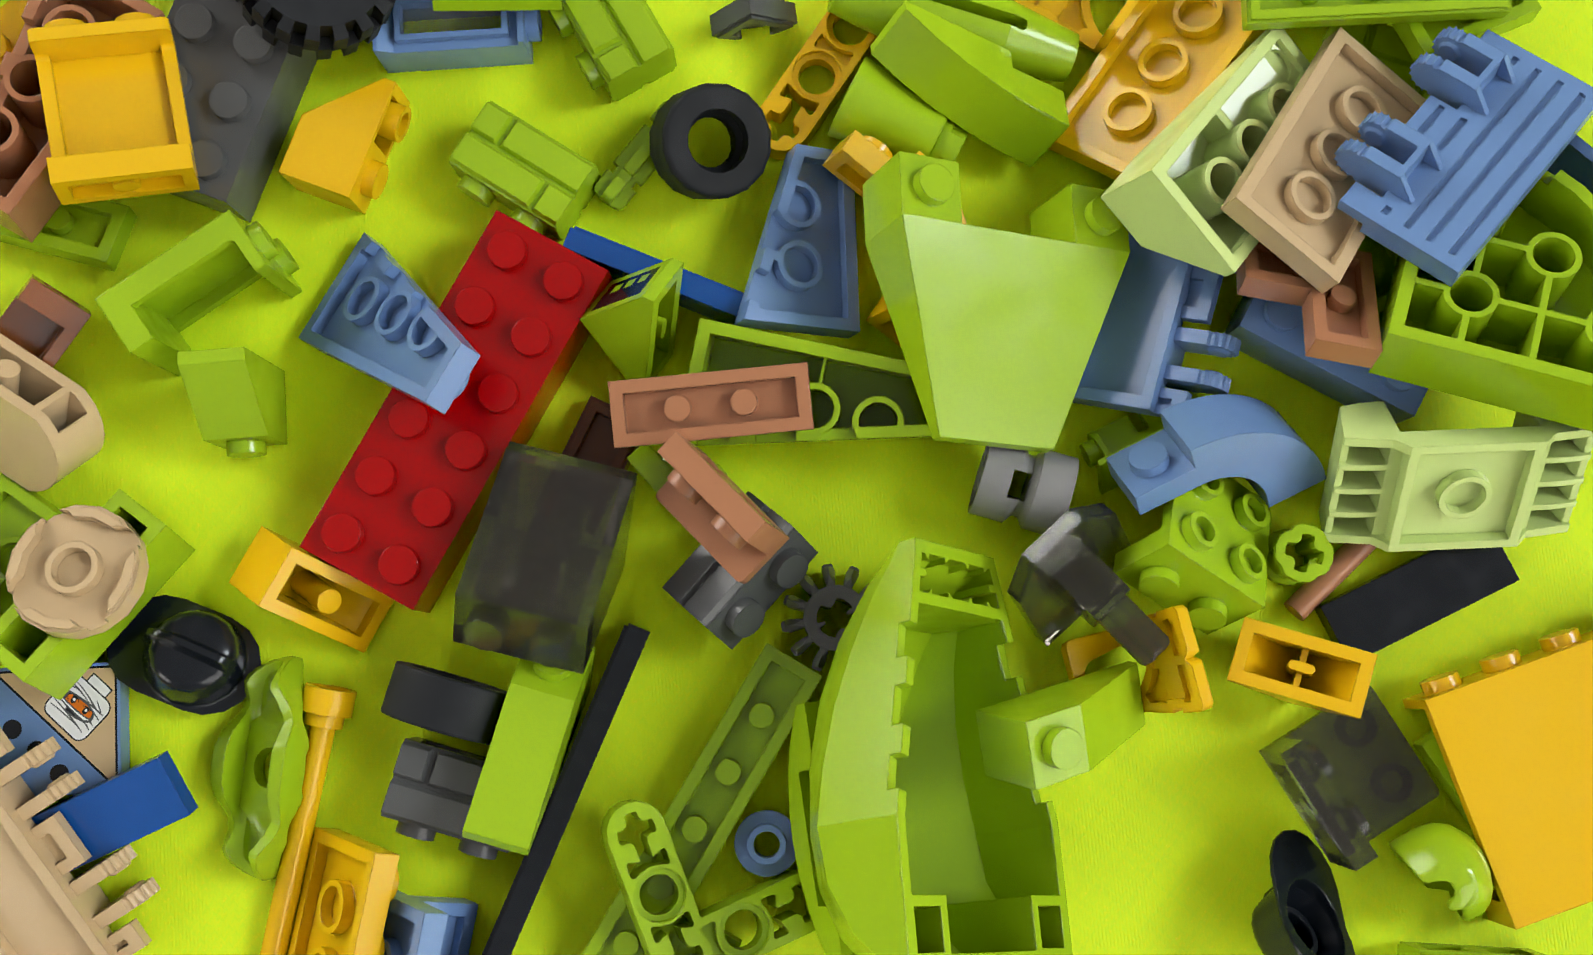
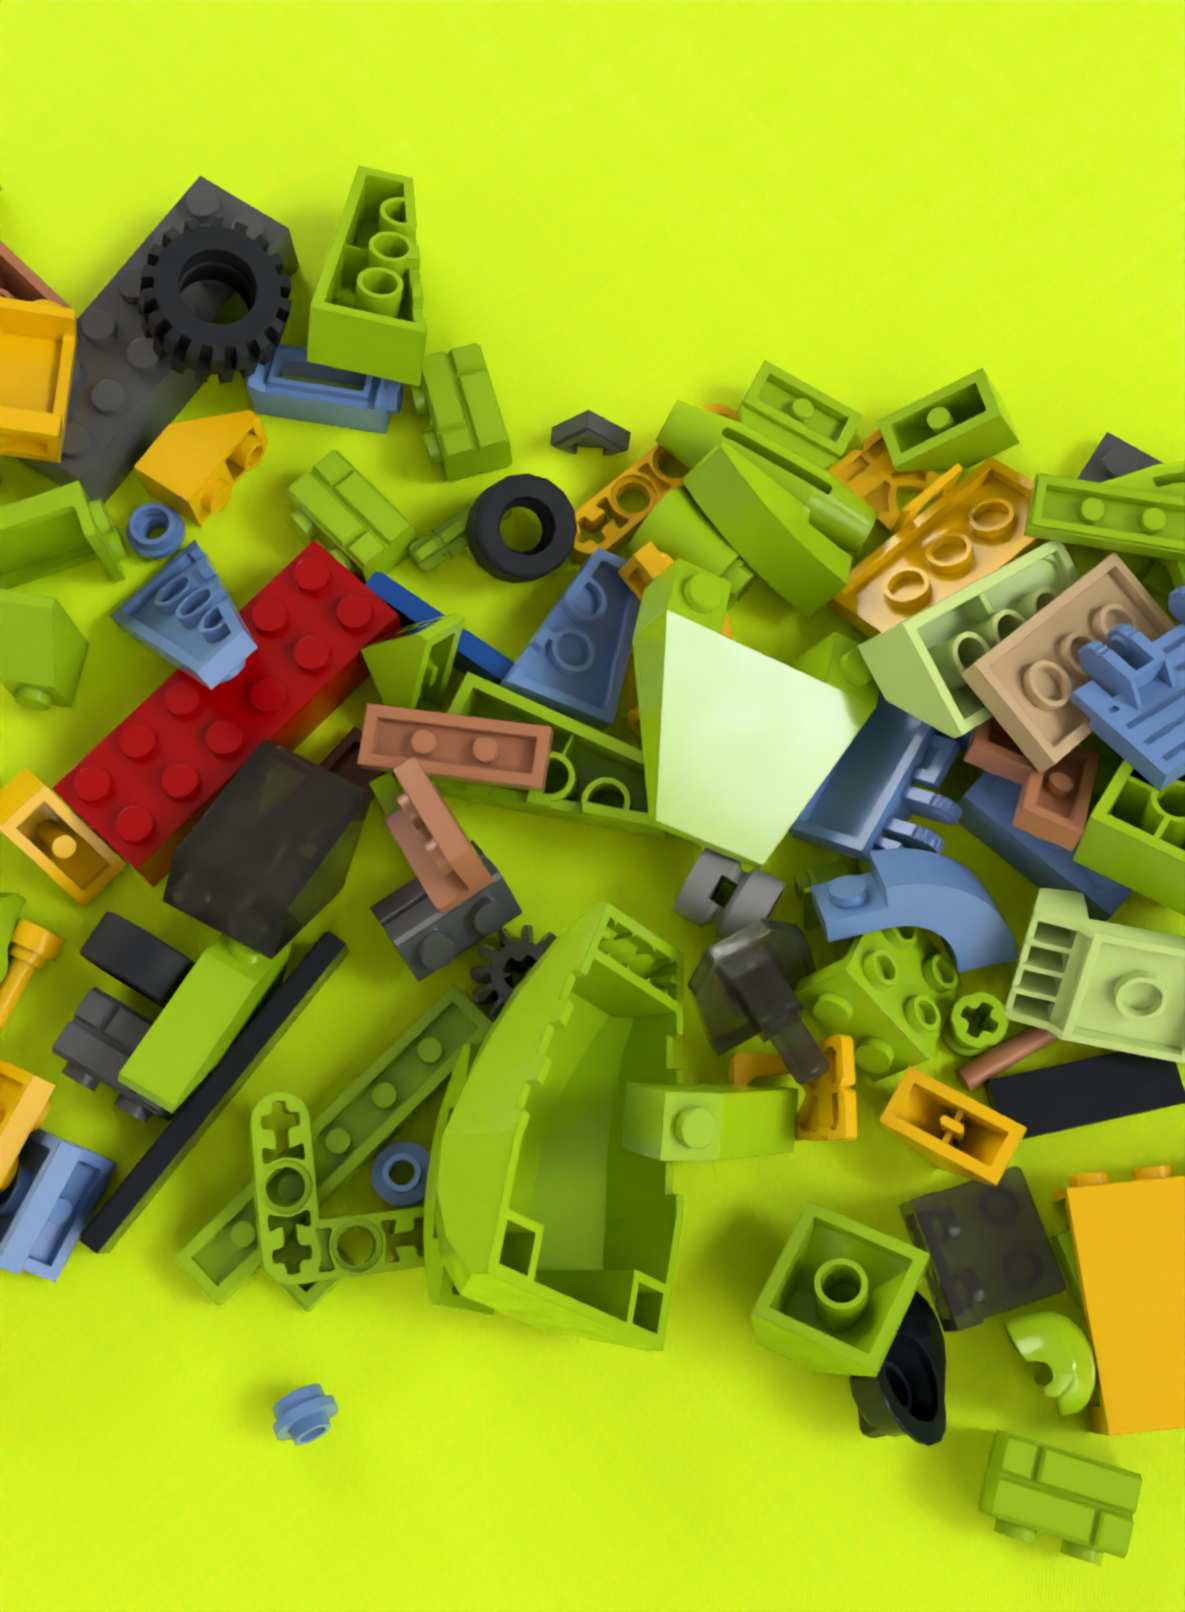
camera: 15 degrees right, 10 degrees down
(307, 220) = (148, 518): none -> medium blue plate
(1230, 860) = (837, 1294): none -> lime slope

